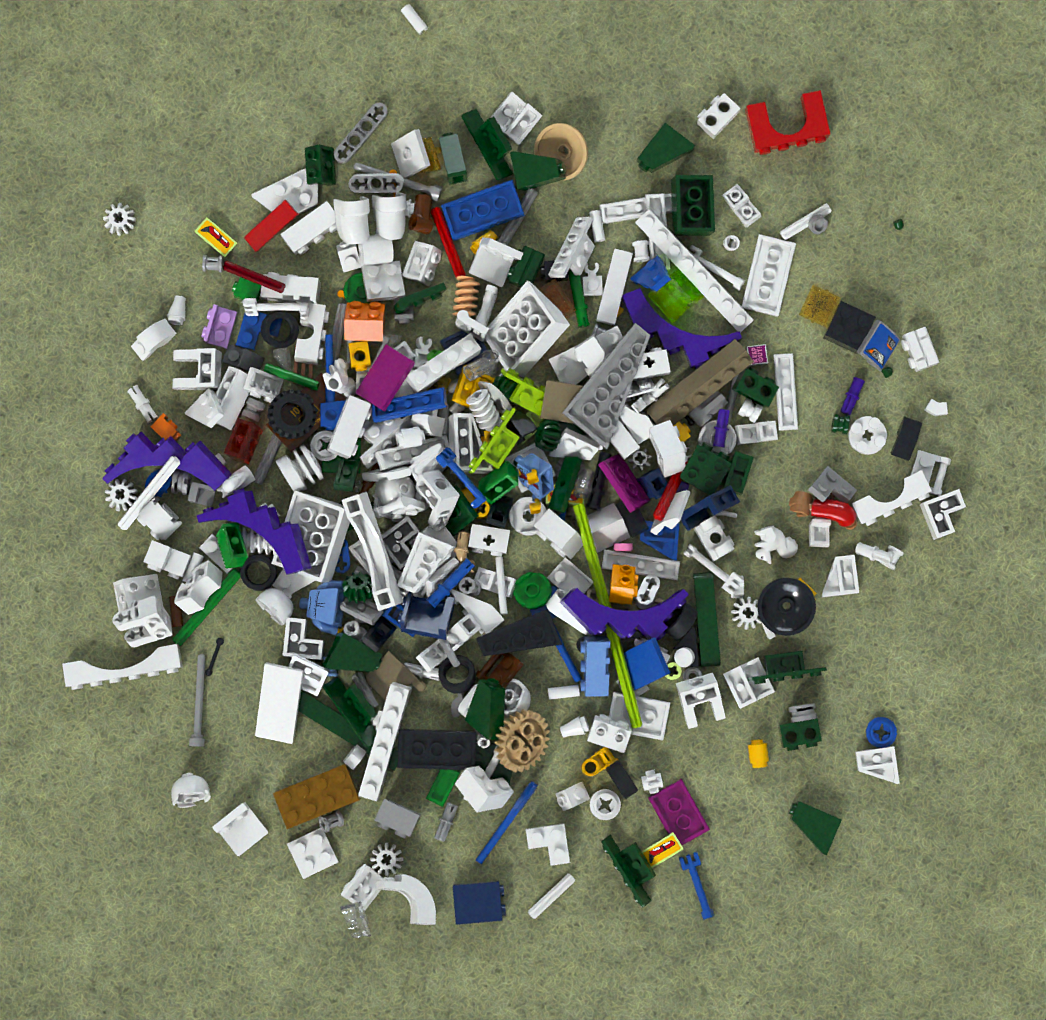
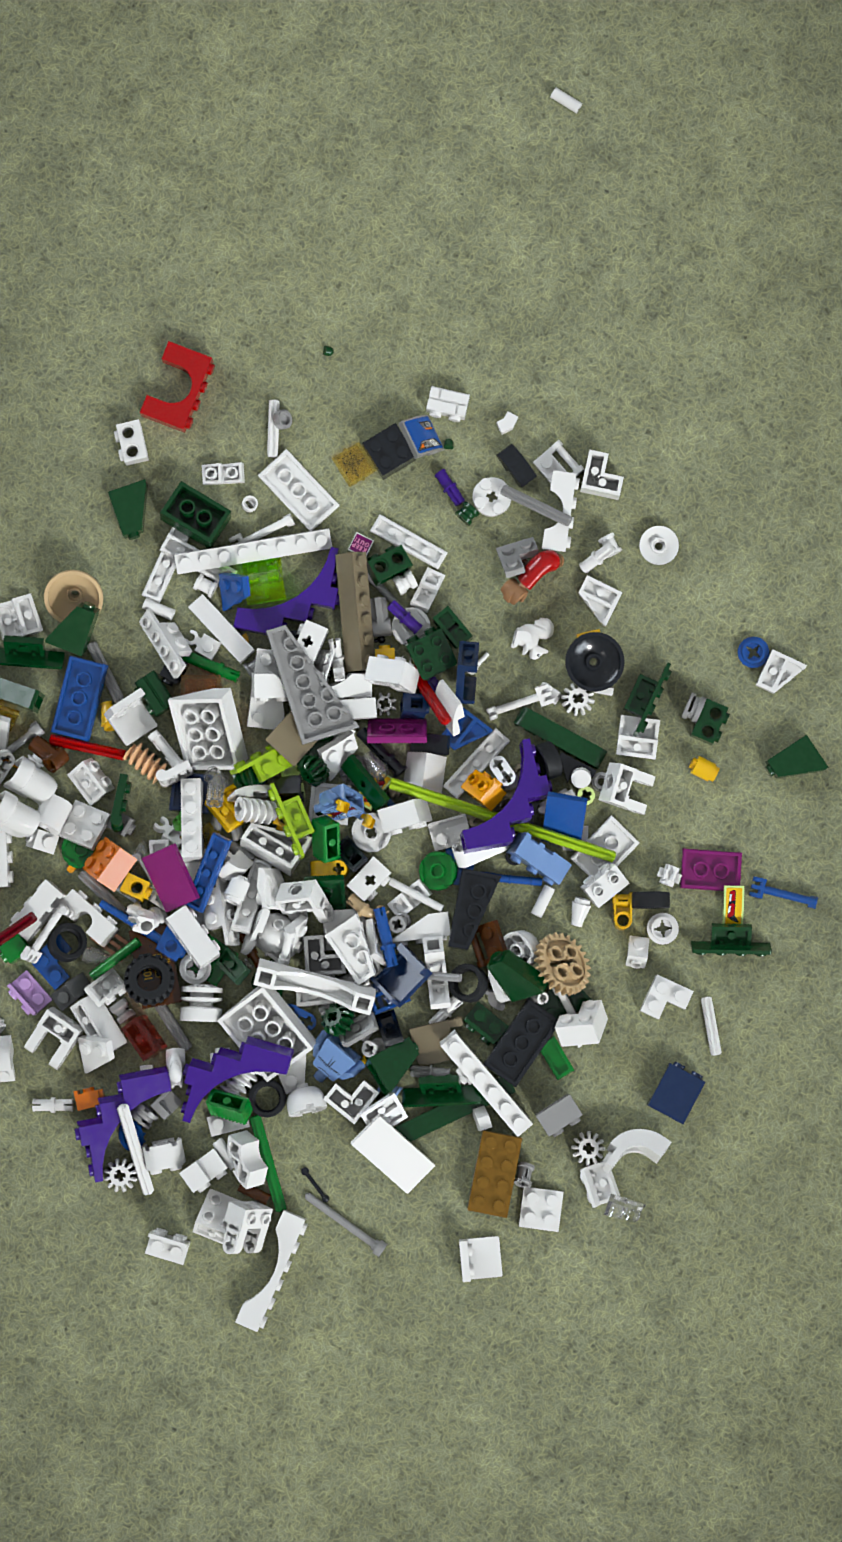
camera: 50 degrees left, 0 degrees up
(88, 570) = (166, 1246): none -> white bracket
(188, 790) = (417, 1281): white cylinder -> none
(433, 710) = (485, 1023): none -> dark green bracket
(445, 822) = (589, 1075): light grey axle -> none
(446, 458) = (276, 870): blue hinge -> none
(518, 806) = (615, 1003): blue piece -> none
(623, 546) = (451, 768): bright pink tile -> none
(709, 527) = (505, 692): white brick -> none
(819, 532) = (548, 592): white bracket -> none
(883, 474) = (536, 505): none -> light grey axle
(927, 593) = (666, 538): none -> white dish

